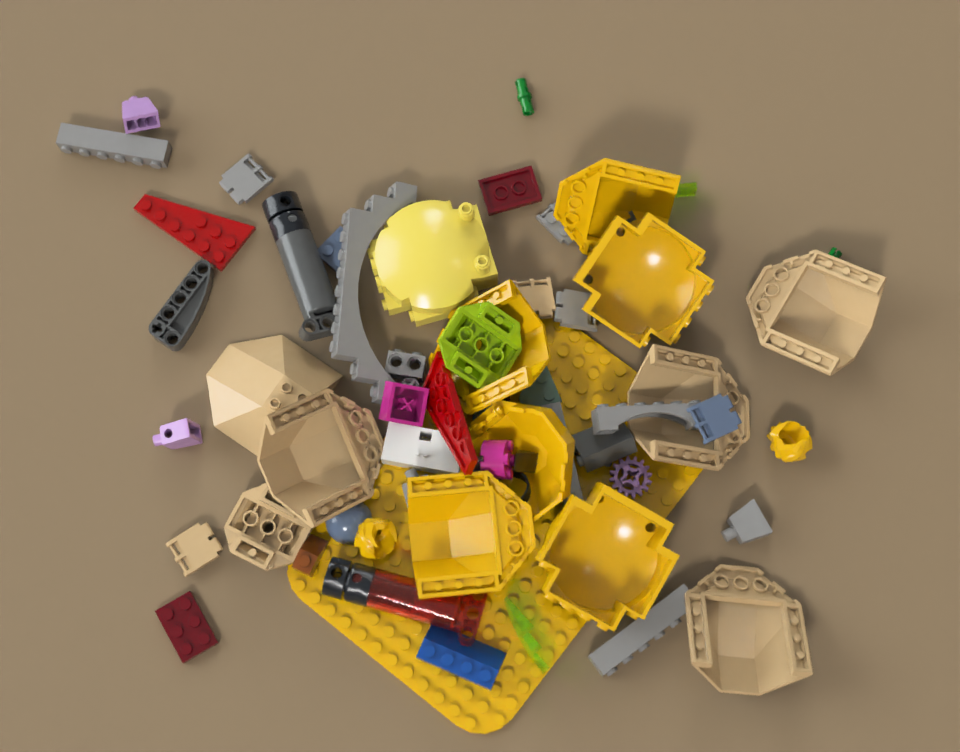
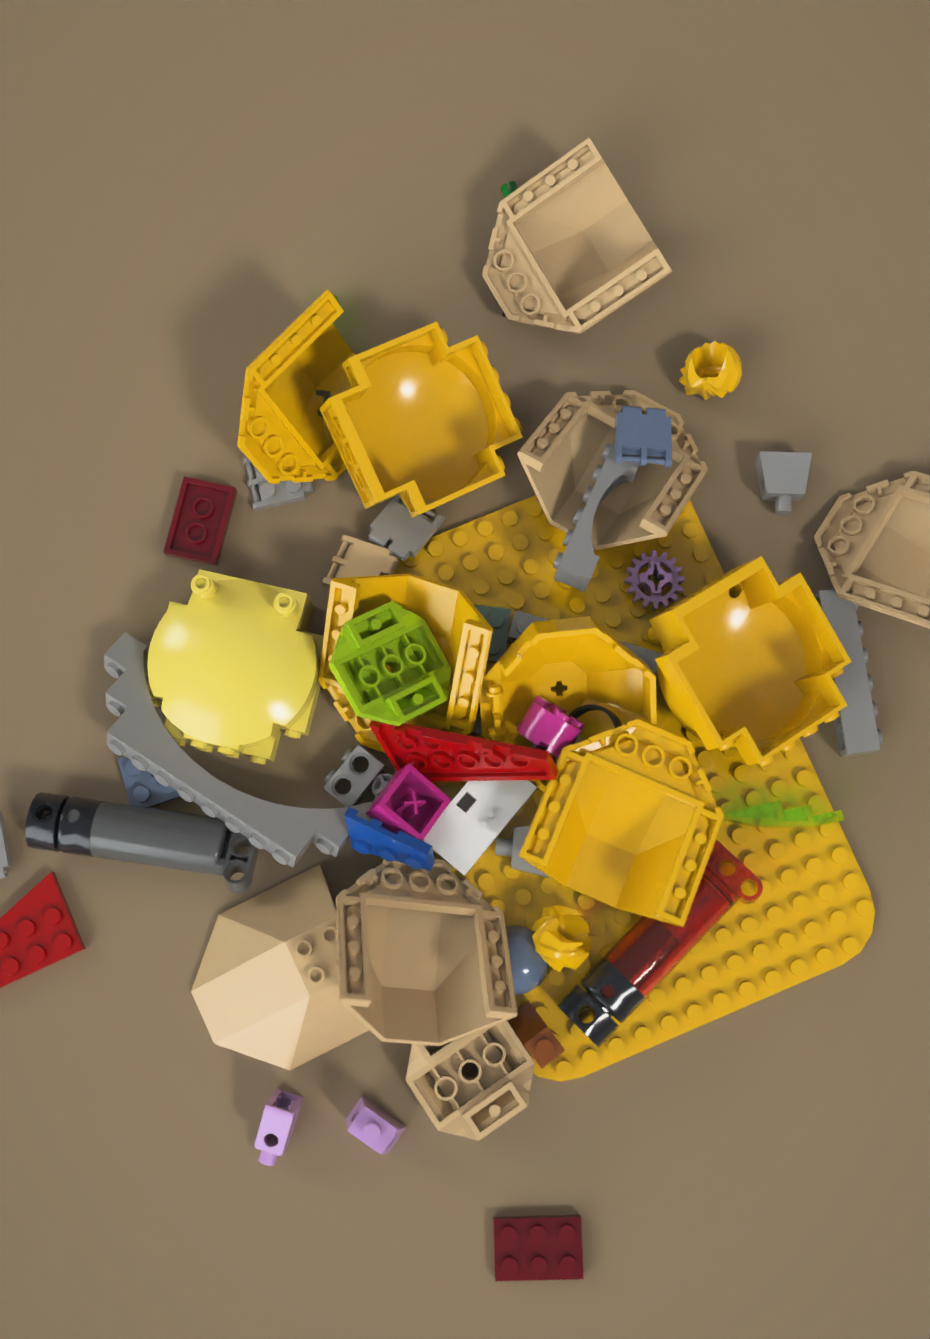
camera: 60 degrees left, 5 degrees up
(187, 313) = (117, 1027): dark grey beam -> none
(195, 548) = (440, 1181): tan plate -> none
(207, 491) = (374, 1126): none -> lavender torso
(376, 410) = (377, 840): none -> blue wing
(473, 663) = (787, 900): blue slope -> none
(524, 97) = (87, 435): green pin -> none
(525, 461) = (569, 694): dark brown slope -> none
(601, 450) = (606, 592): dark grey piece -> none

